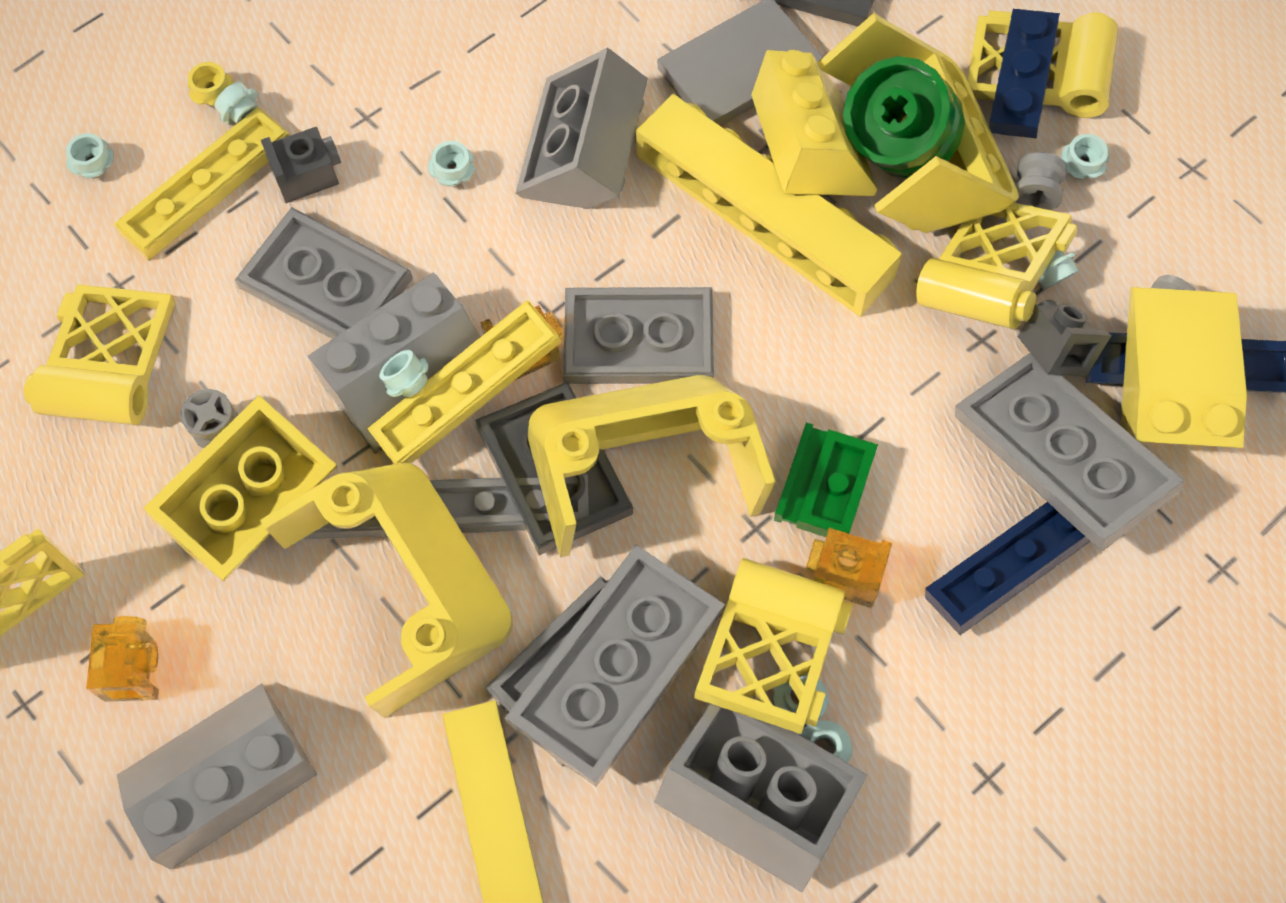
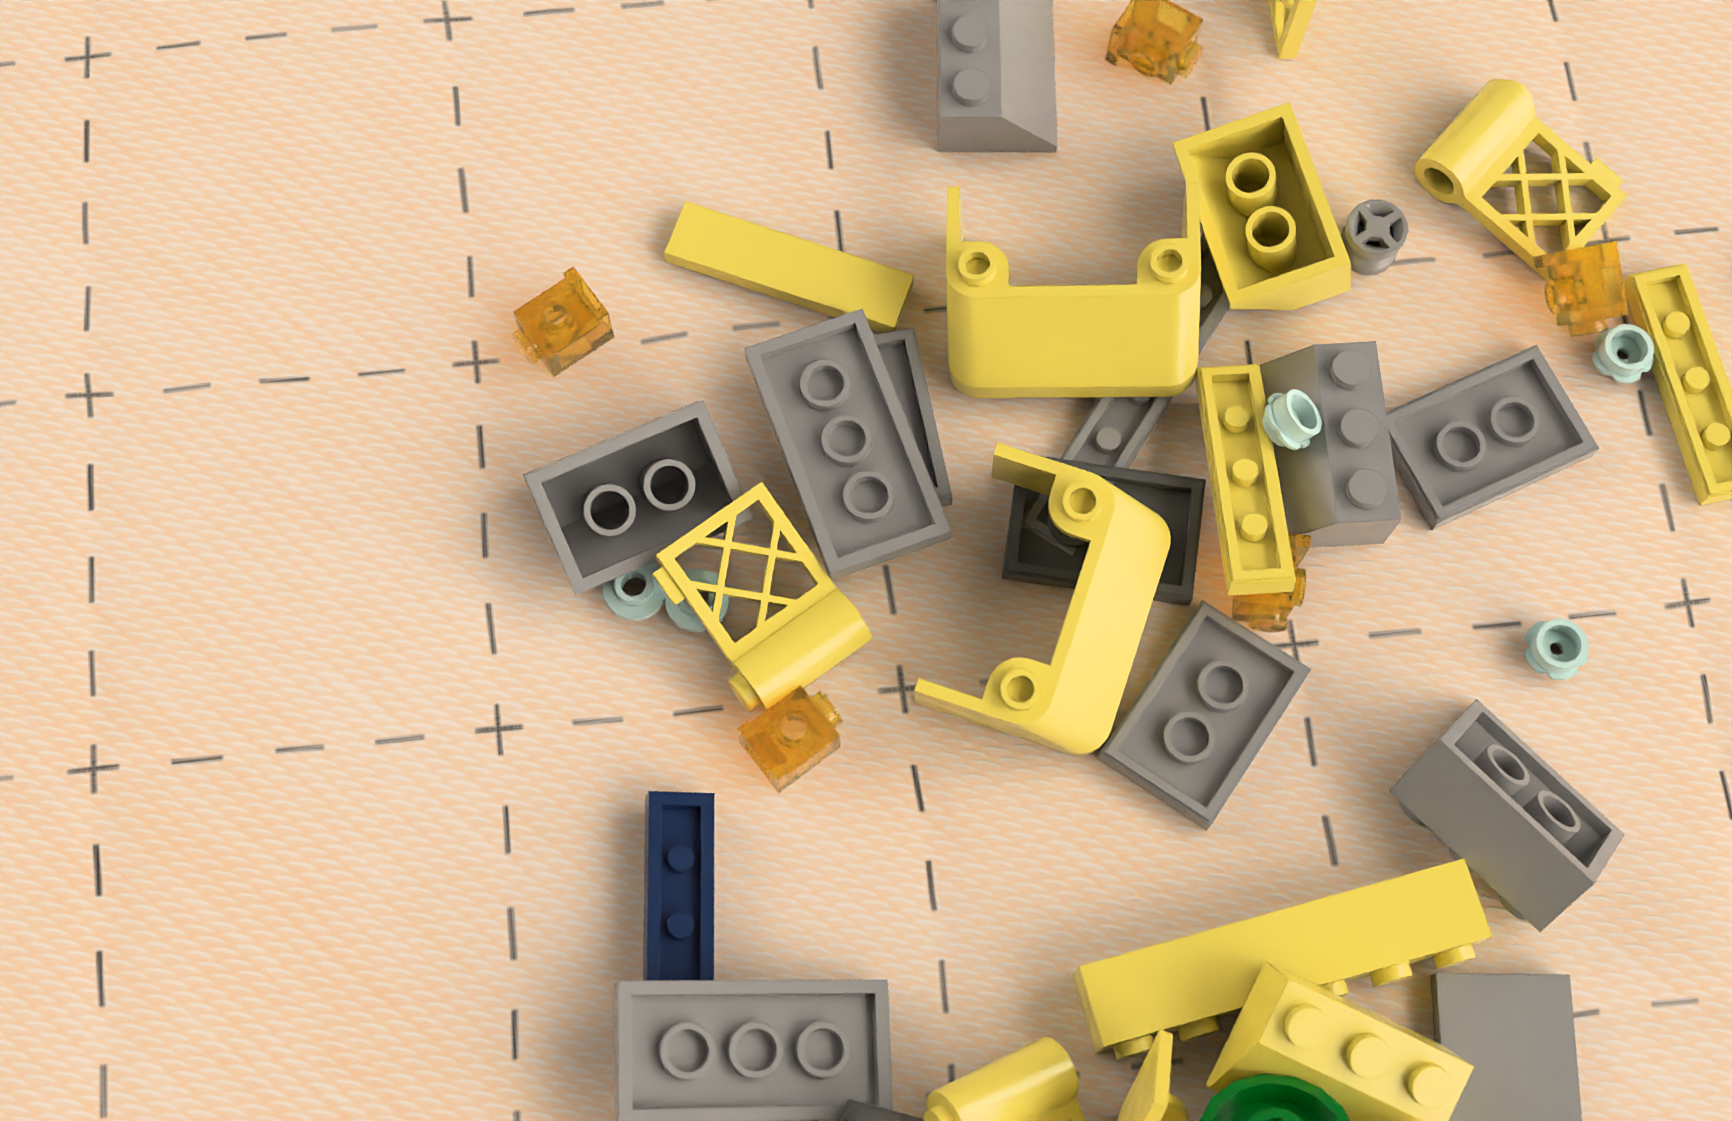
camera: 120 degrees right, 5 degrees up
(172, 266) = (1584, 287): none -> clear yellow brick
(206, 217) = (1631, 341): none -> light aqua plate
(302, 163) = (1650, 463): dark grey brick -> none
(825, 481) = (897, 782): green plate -> none

